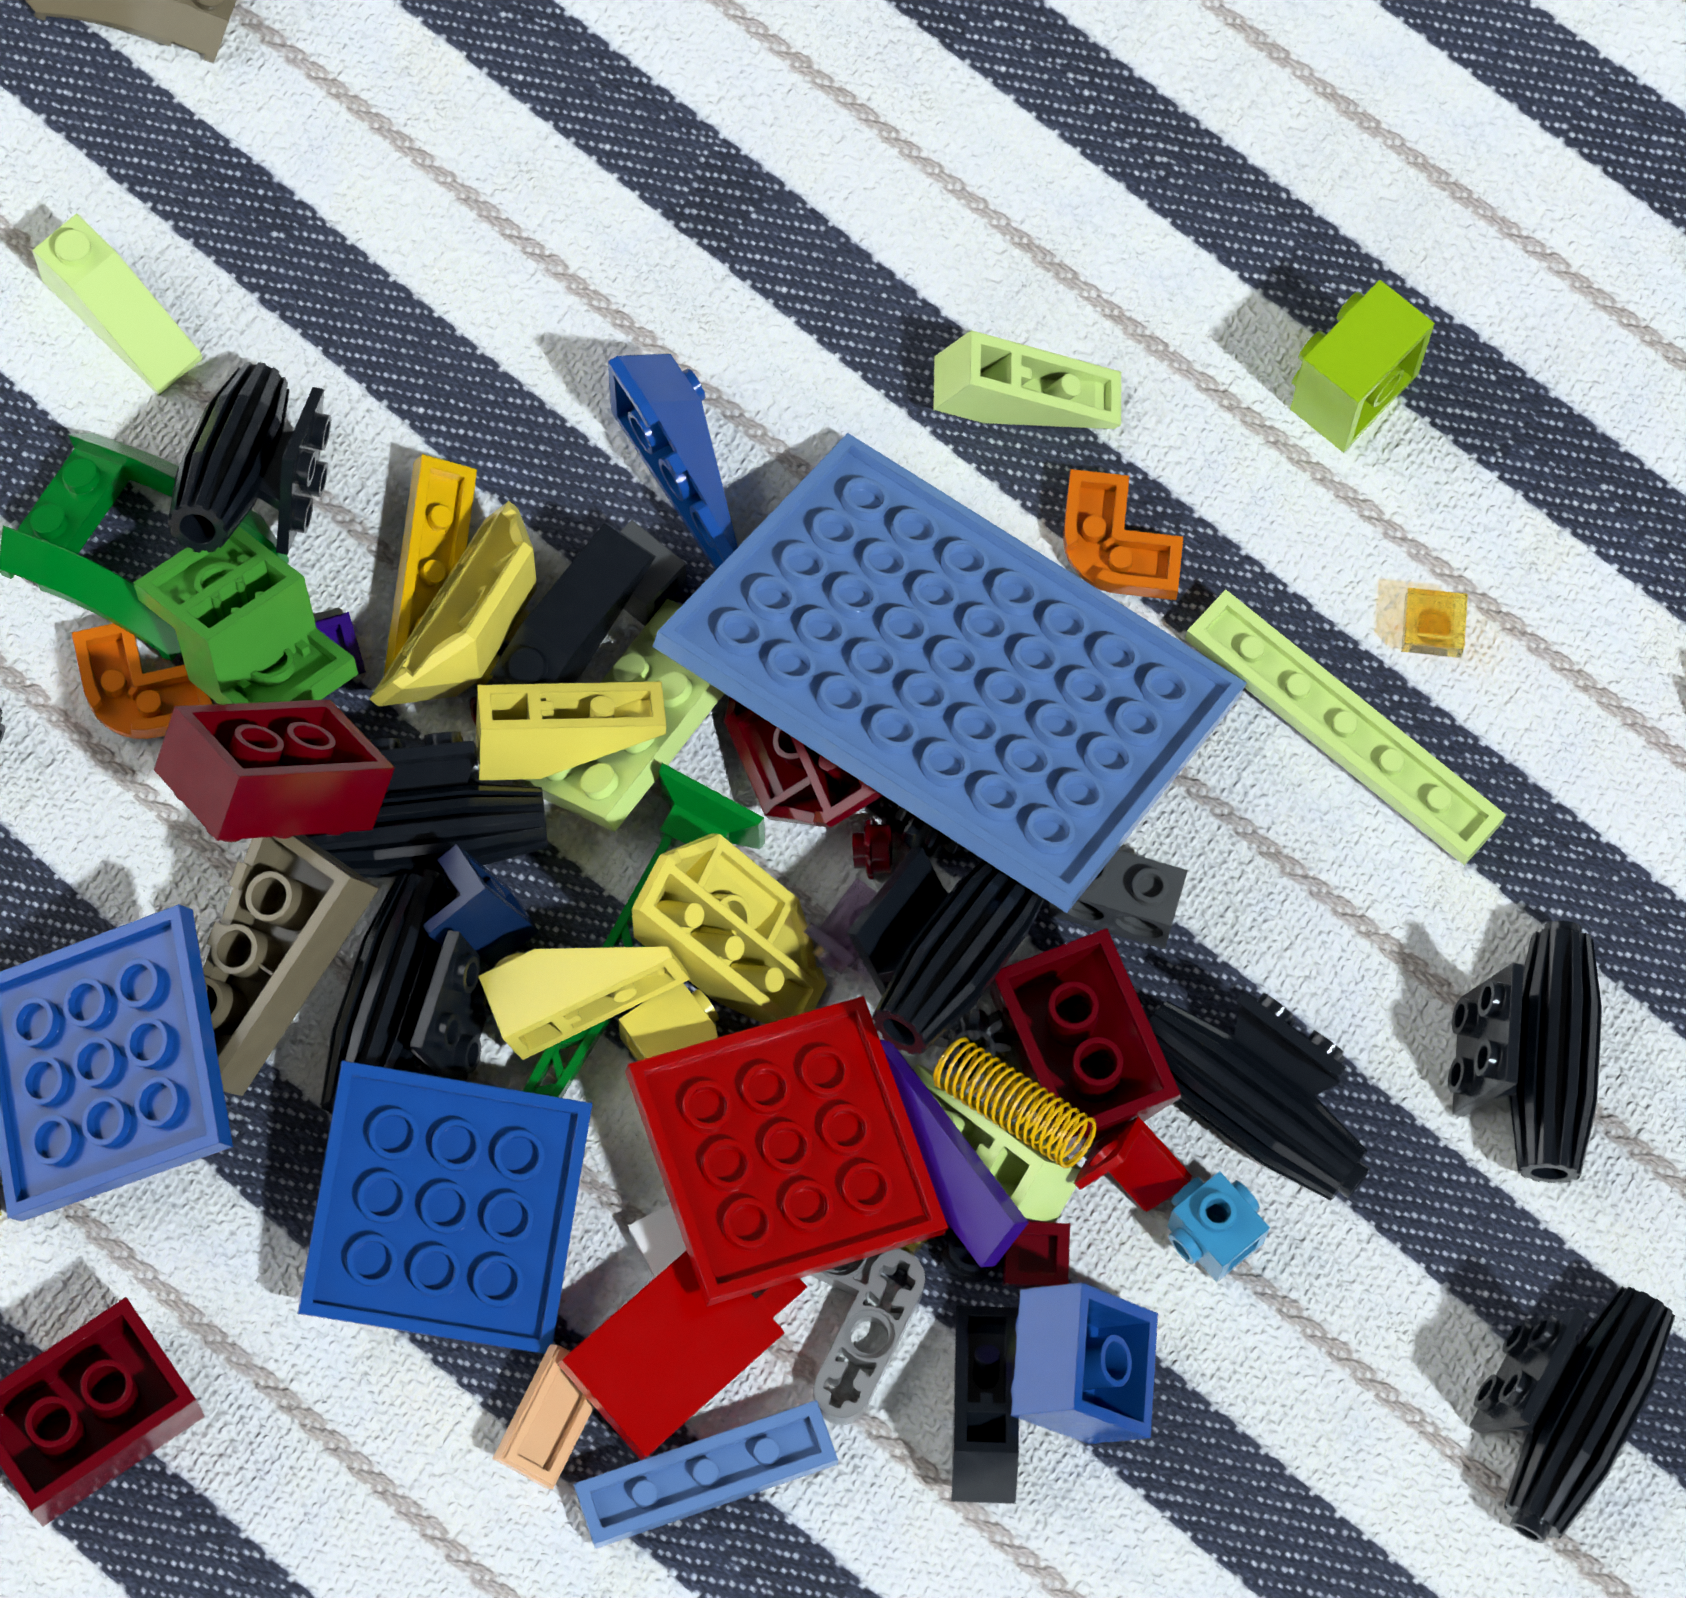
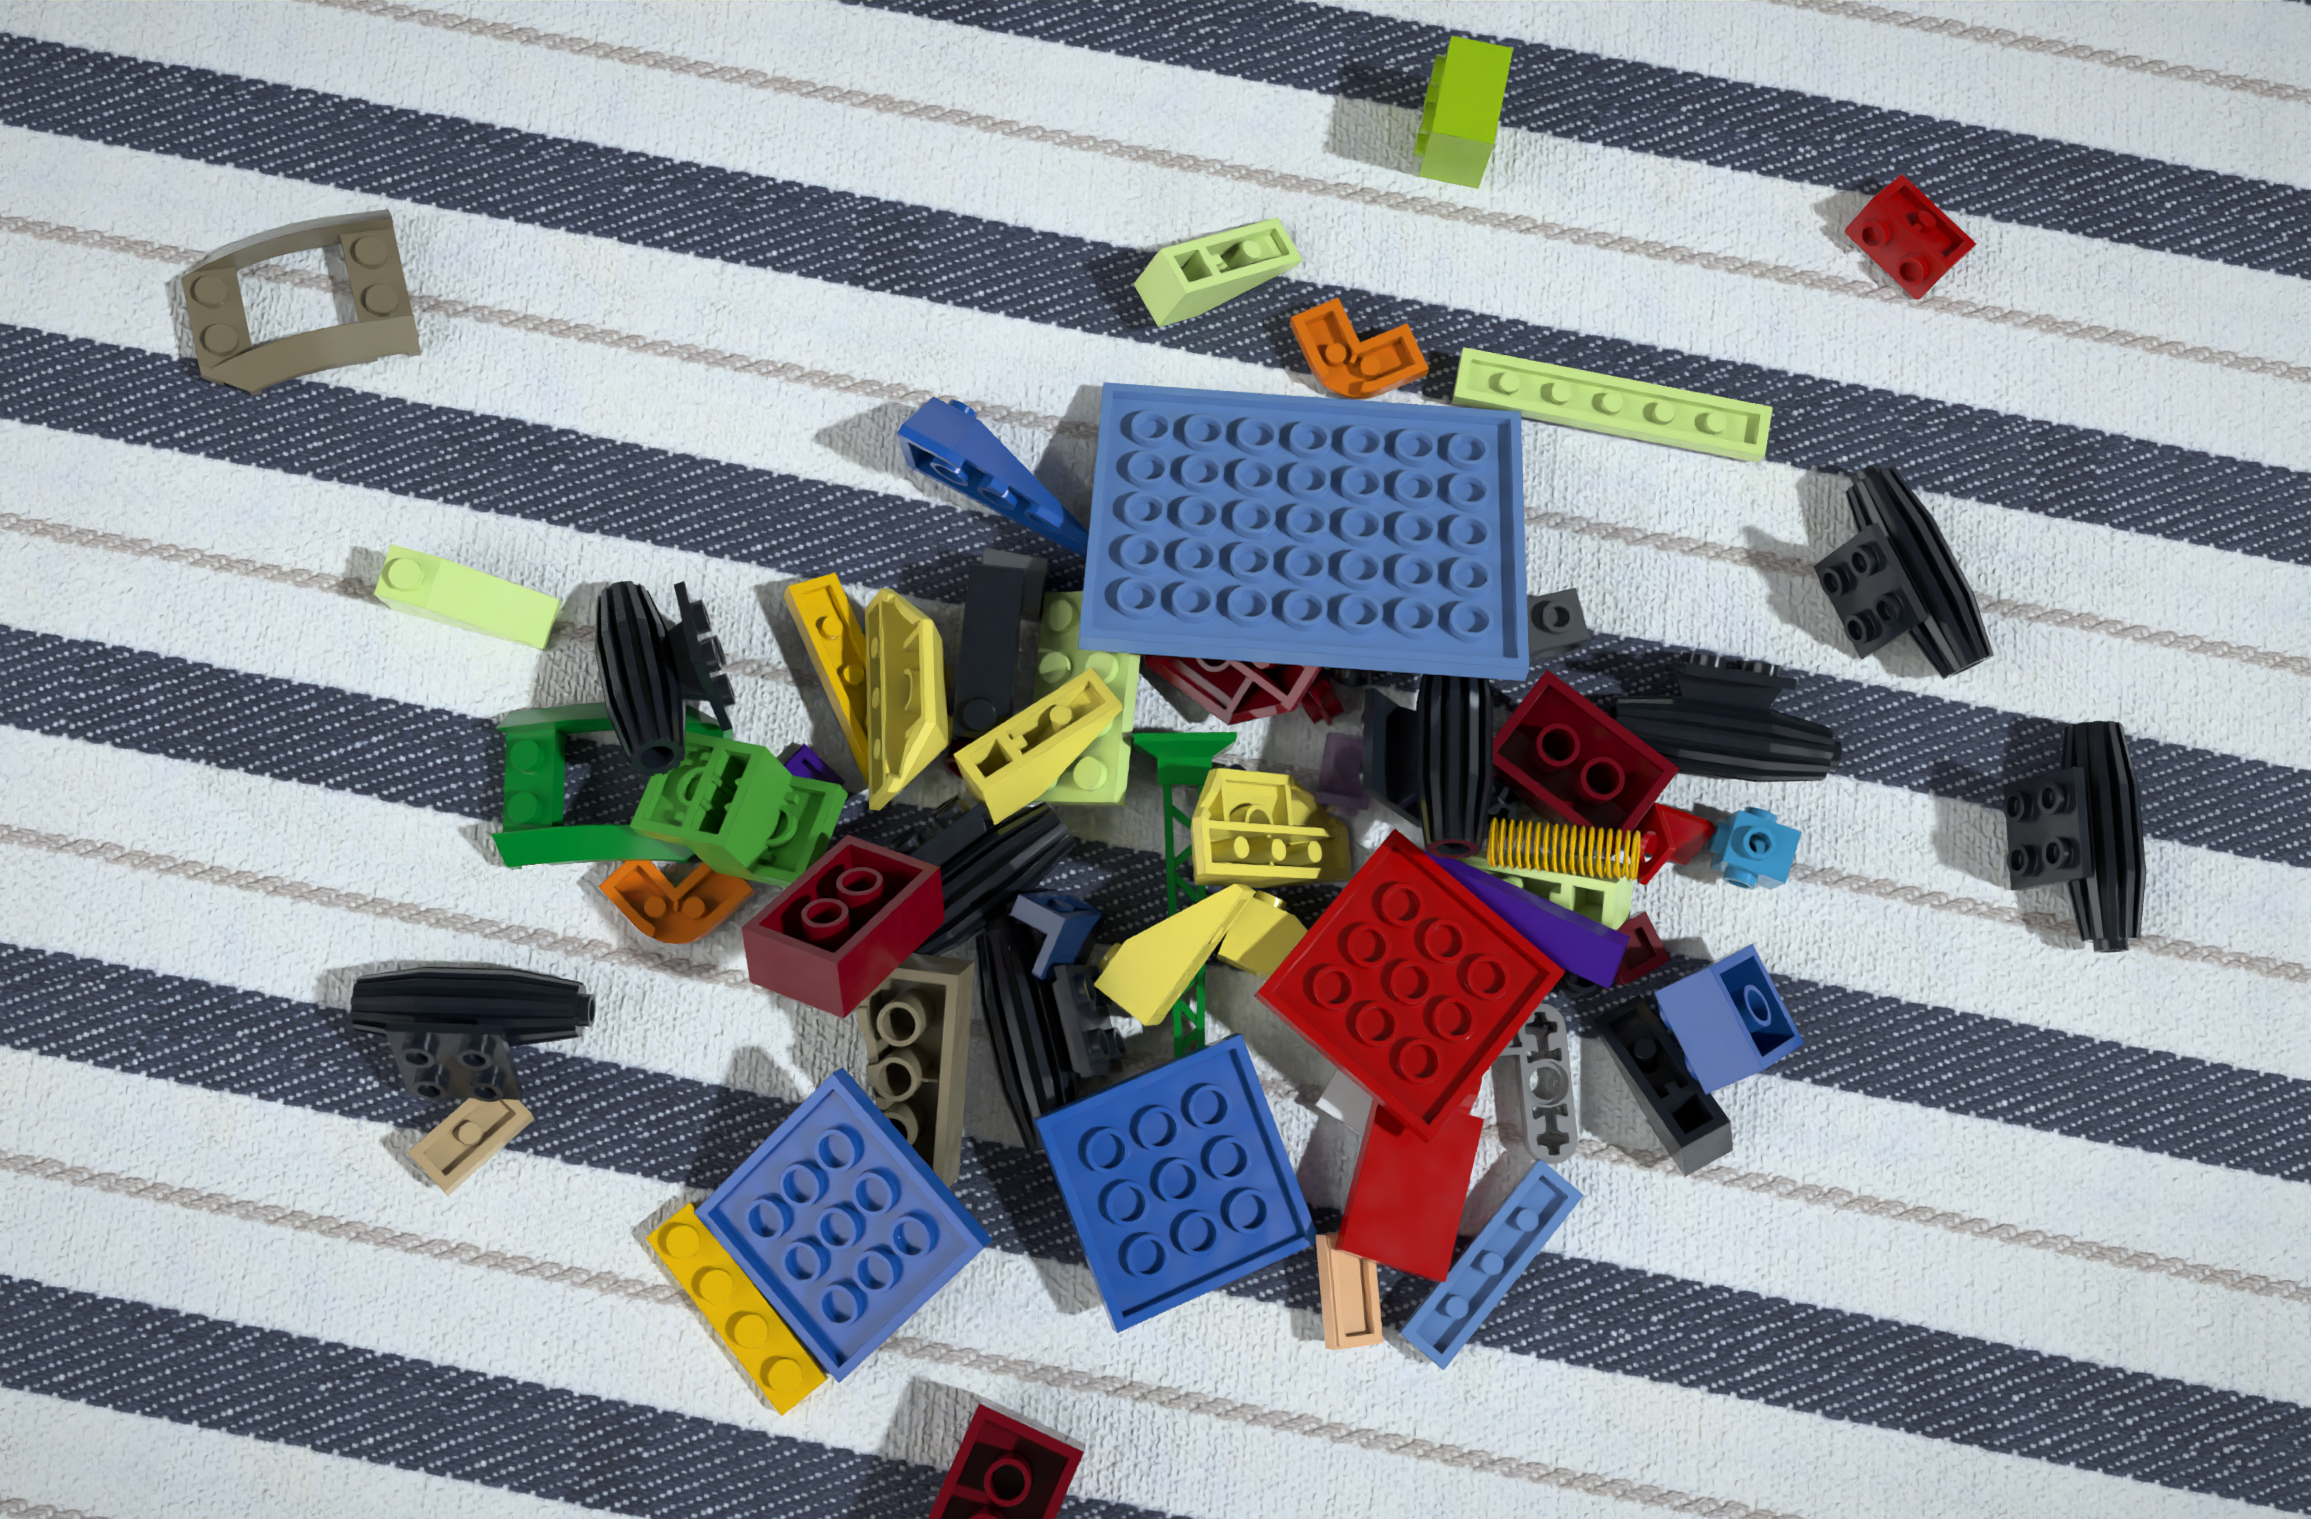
camera: 30 degrees left, 10 degrees up
(1434, 622) = (1629, 285): clear yellow plate -> none

